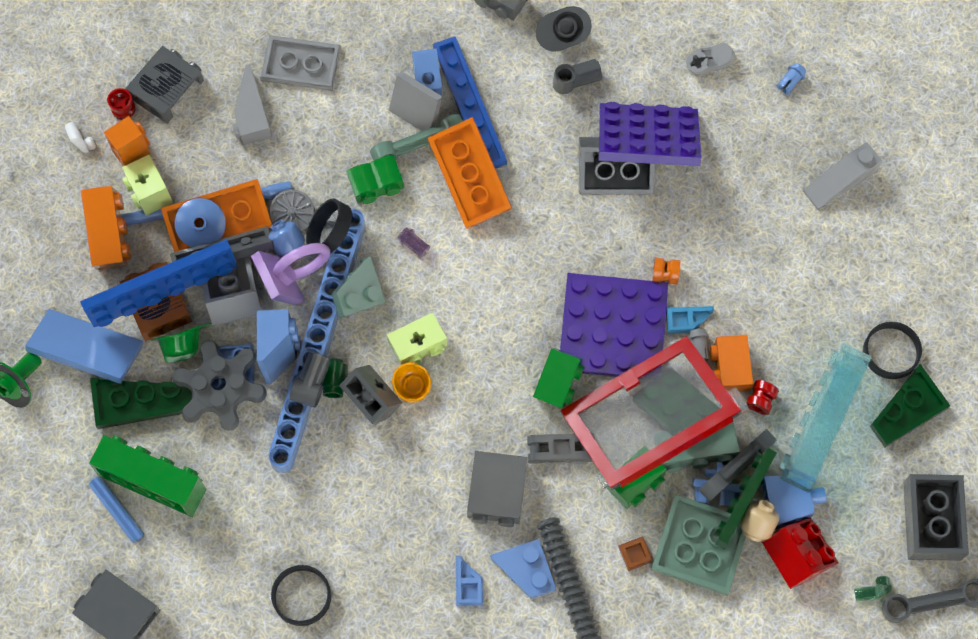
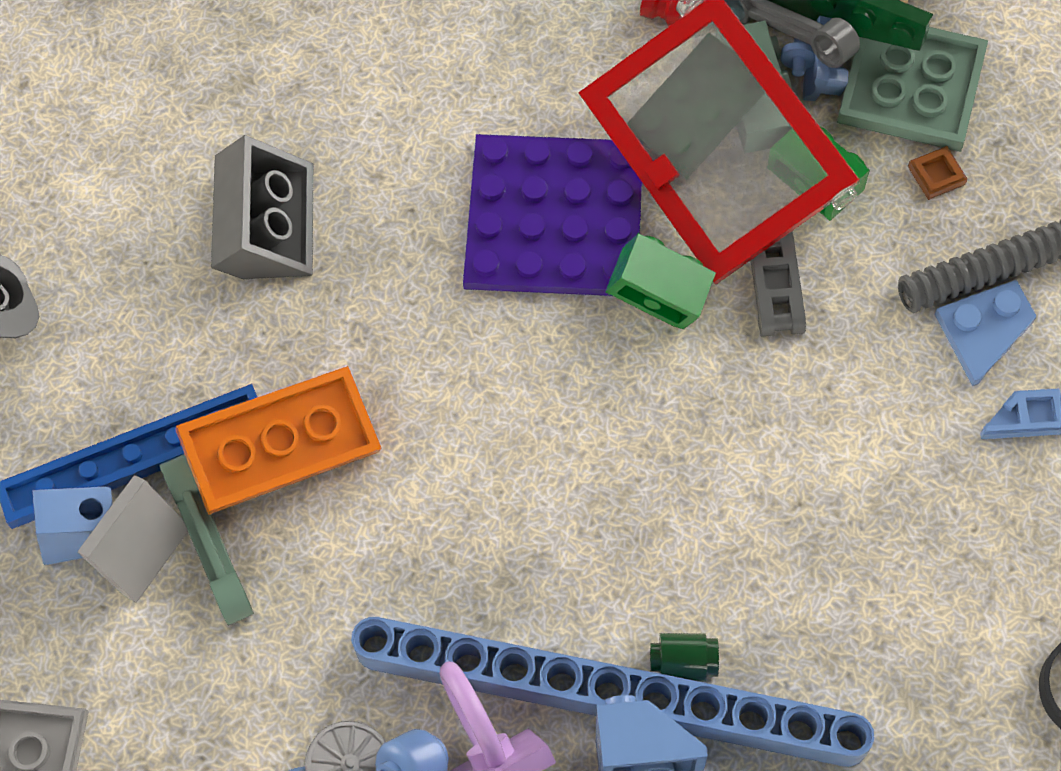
camera: 90 degrees left, 5 degrees down
(308, 387) = (722, 684): dark grey piece -> none
(321, 217) = (375, 716): black tyre -> none
(359, 291) = (516, 617): sand green wing -> none
(370, 394) = (715, 584): dark grey brick -> none
(375, 179) = (284, 610): green brick -> none
(411, 382) = (684, 519): light orange hair -> none
(413, 242) = (409, 537): clear purple pin -> none
(426, 331) = (605, 540): yellowish green brick -> none
(497, 488) = (861, 372): dark grey brick -> none
(577, 74) = (88, 280): dark grey piece -> none
(649, 134) = (218, 150): dark purple plate -> none
(672, 271) = (457, 133): orange wheel -> none
(686, 319) = (536, 109): dark azure tile -> none
(699, 340) = (568, 88): light grey pin -> none
(710, 59) = (65, 61): light grey piece -> none
(732, 362) = (608, 36): orange brick -> none

